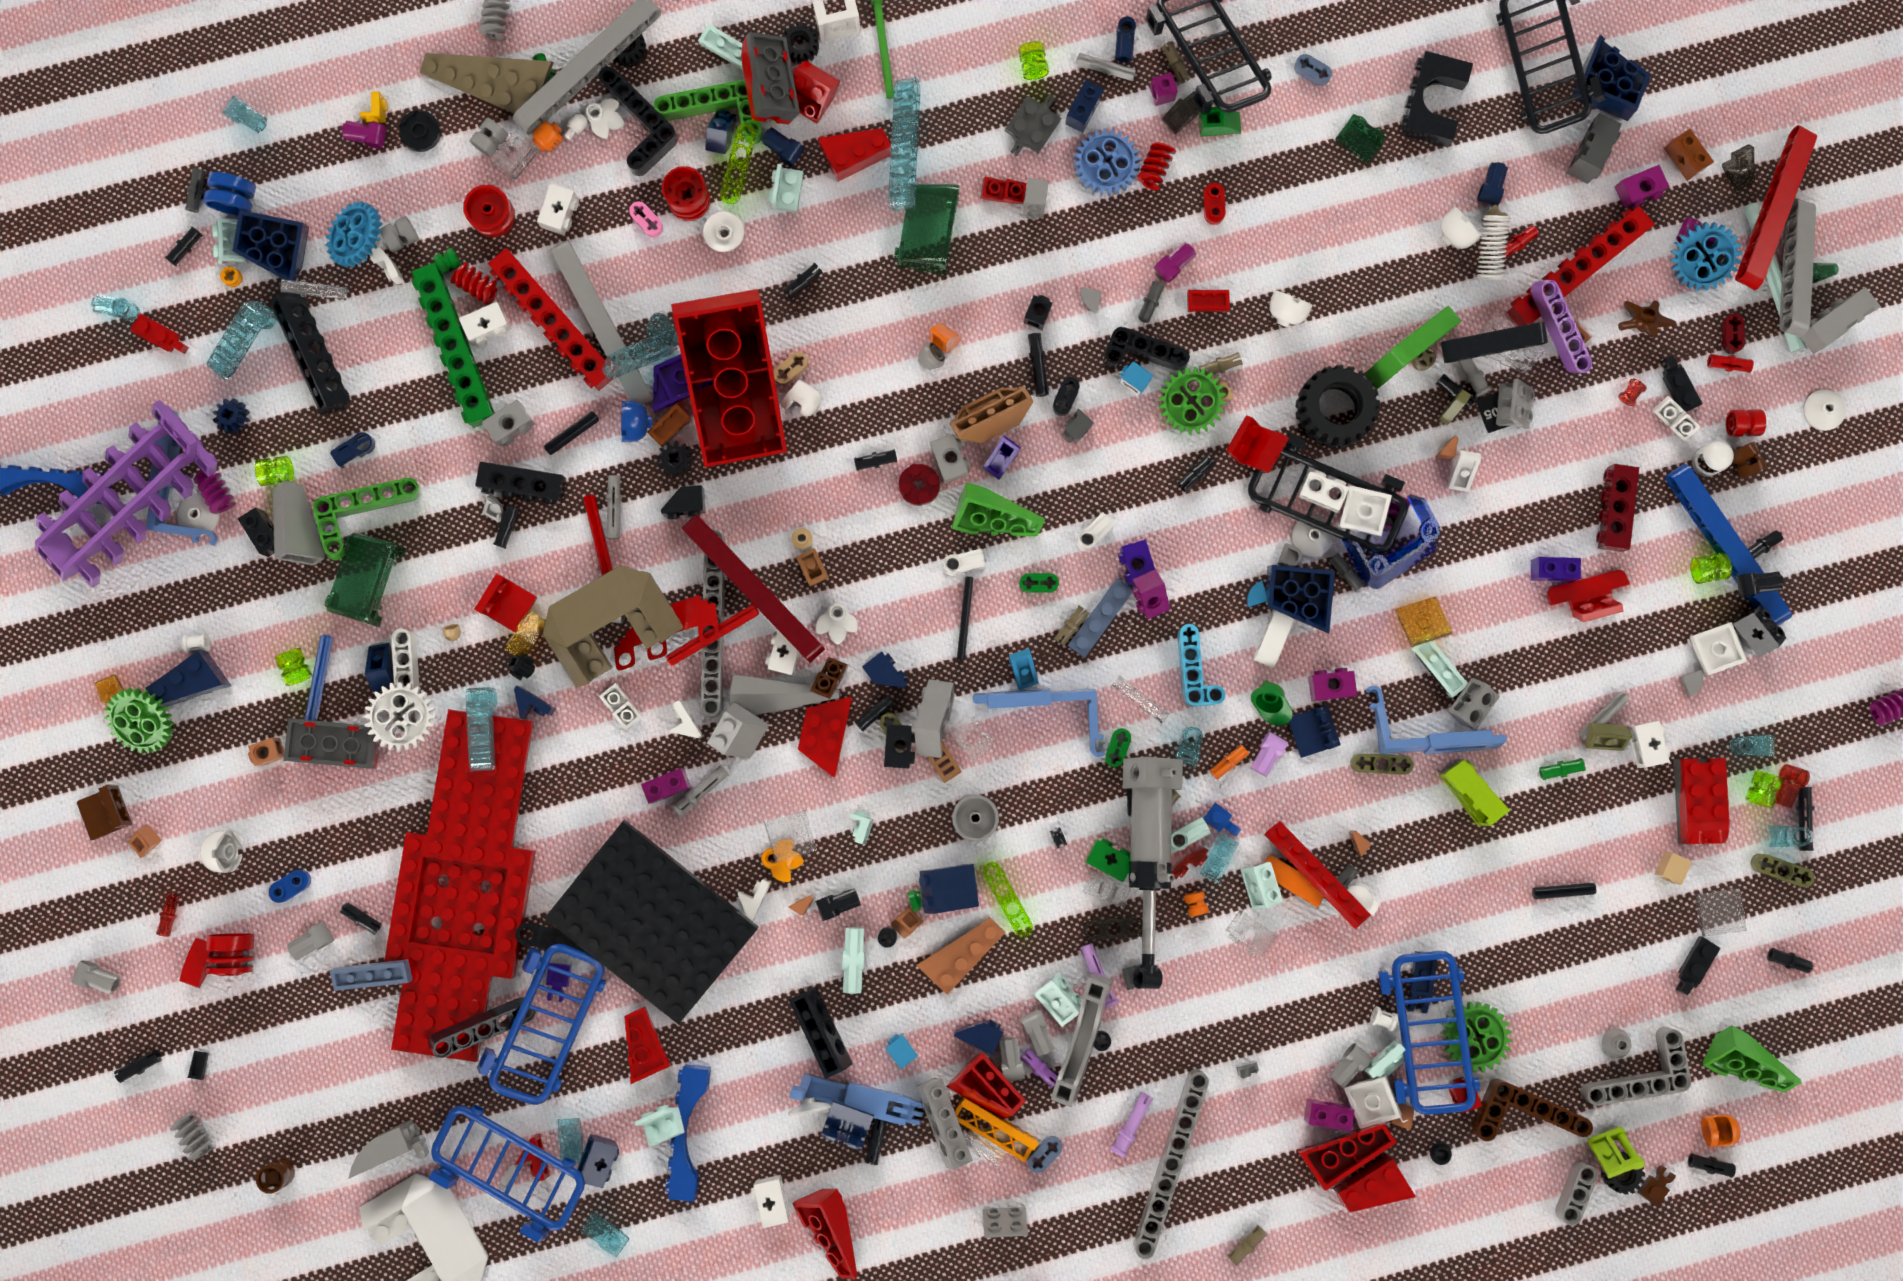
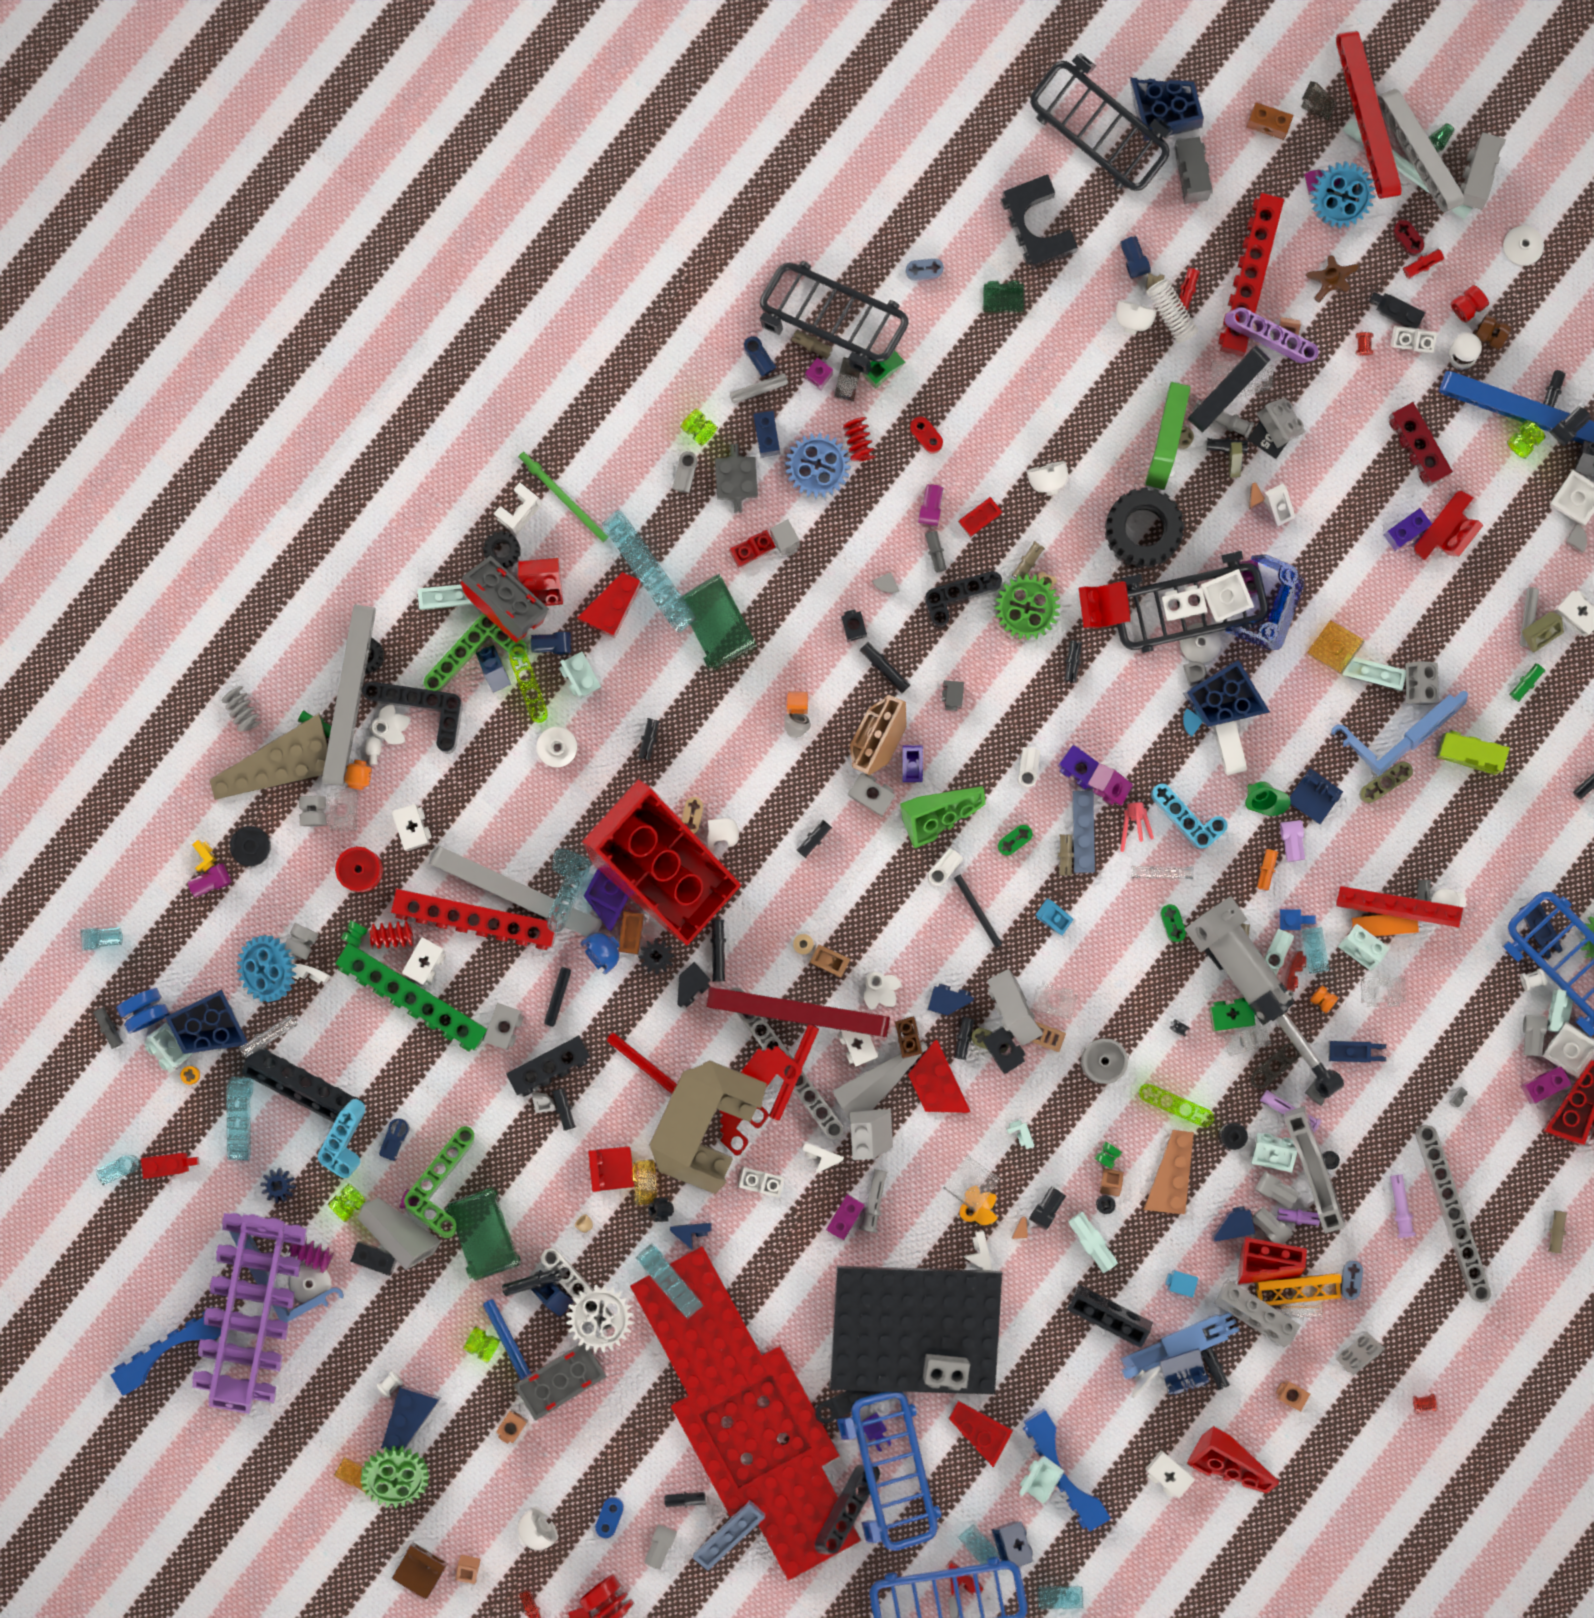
camera: 30 degrees left, 0 degrees up
(183, 246) = (134, 1079): black pin -> none
(297, 418) = (334, 1151): none -> medium azure beam
(377, 648) = (539, 1280): none -> black pin
(613, 482) = (621, 1010): light grey pin -> none
(649, 216) = (485, 787): bright pink beam -> none
(653, 971) = (948, 1366): none -> light grey brick
(686, 183) = (497, 732): red wheel -> none
(733, 486) = (718, 956): none -> black pin
(922, 496) = (869, 823): dark red plate -> none
(927, 1221) = (1301, 1397): none -> nougat brick
(948, 888) = (1125, 1131): dark blue brick -> none
(994, 90) = (685, 474): none -> light grey piece
(1035, 960) = (1233, 1136): none -> black wheel
(1040, 697) = (1087, 926): medium blue hinge -> none
(1070, 398) = (930, 675): black beam -> none
(1135, 378) = (969, 622): dark azure brick -> none
(1156, 634) = (1137, 813): none -> coral plant
(1189, 748) = (1229, 882): clear light blue piece -> none
(1189, 966) = (1354, 1051): none -> dark blue hinge
(1345, 685) = (1298, 761): magenta brick -> none
(1346, 572) = (1248, 652): dark grey axle -> none
(1359, 842) = (1414, 857): nougat slope -> none
(1651, 179) = (1255, 162): magenta brick -> none

